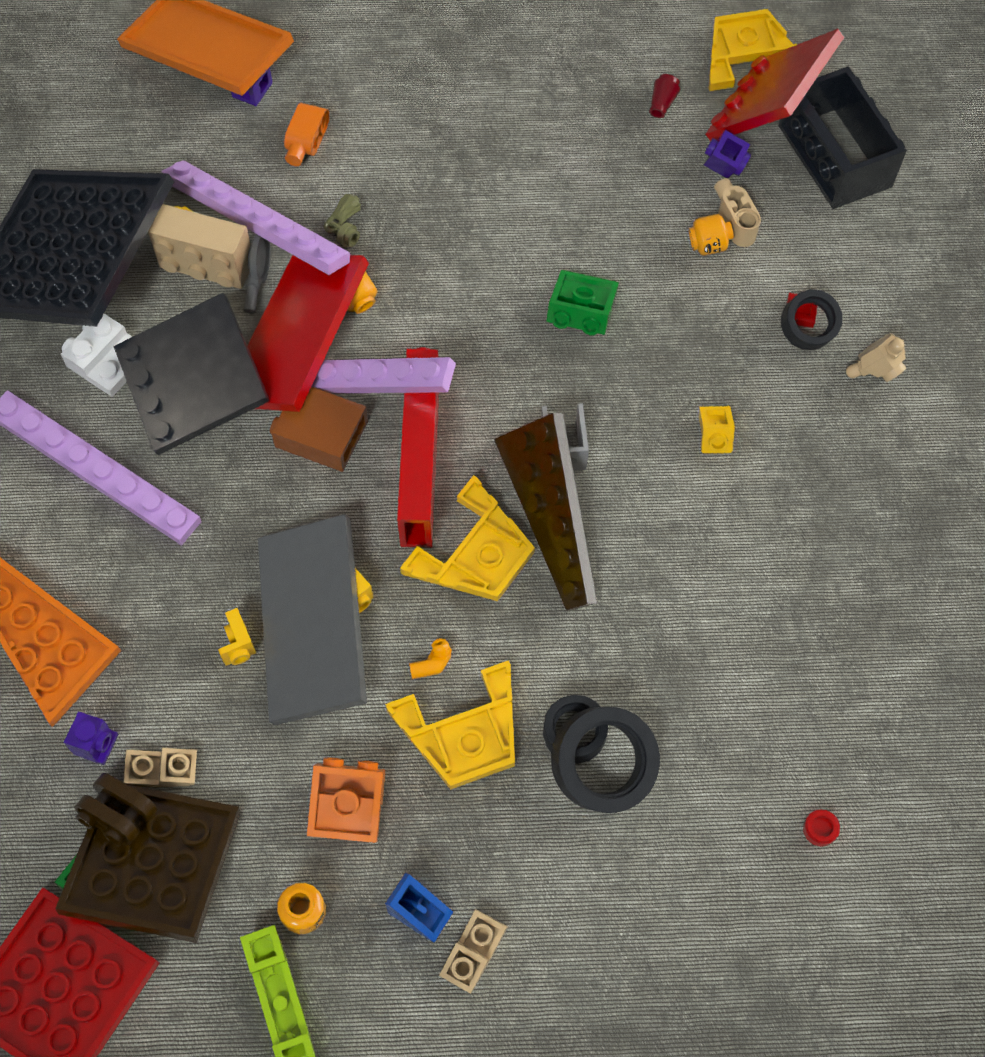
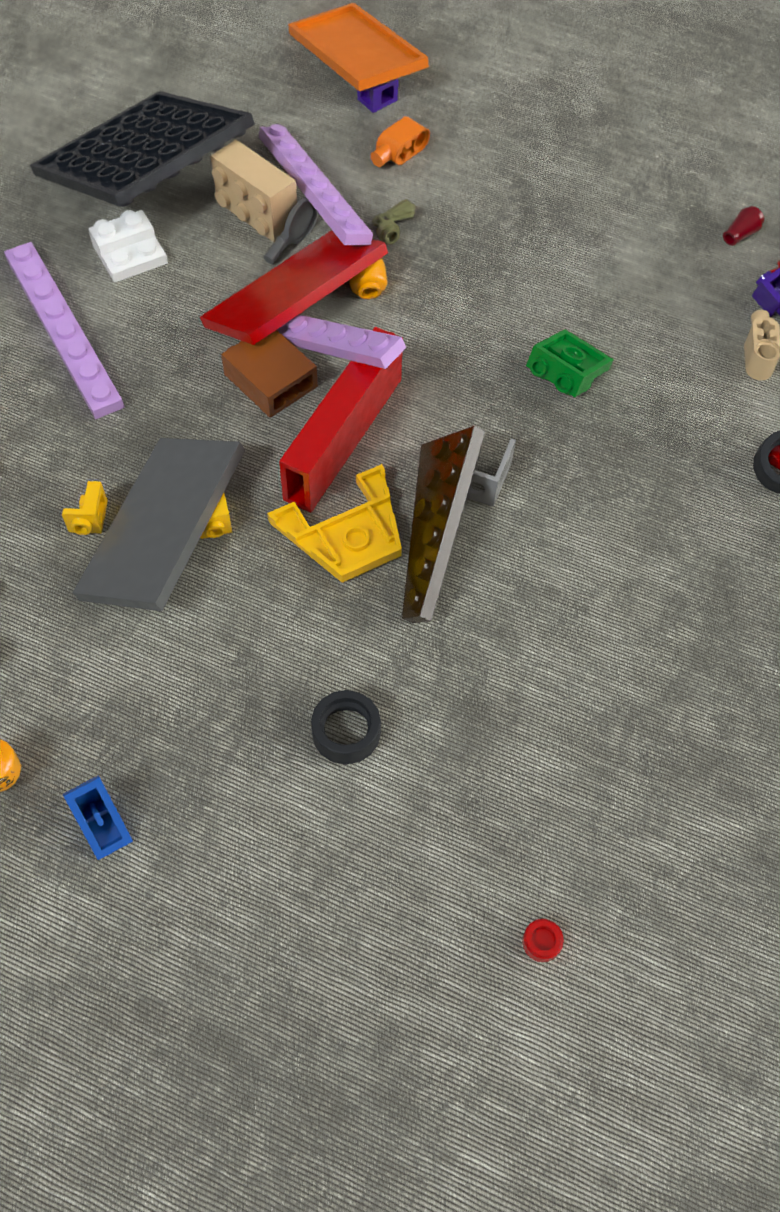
camera: 25 degrees right, 5 degrees down
(191, 374) = (182, 281): black plate -> none
(346, 800) = (94, 690): orange plate -> none
(435, 661) = (251, 610): light orange arm -> none
(469, 742) = (242, 694): yellow wing -> none
(473, 951) = (127, 888): tan slope -> none
(646, 759) = (400, 764): black tyre -> none
(710, 234) = (725, 352): light orange head -> none
(716, 429) = (638, 521): yellow bracket -> none

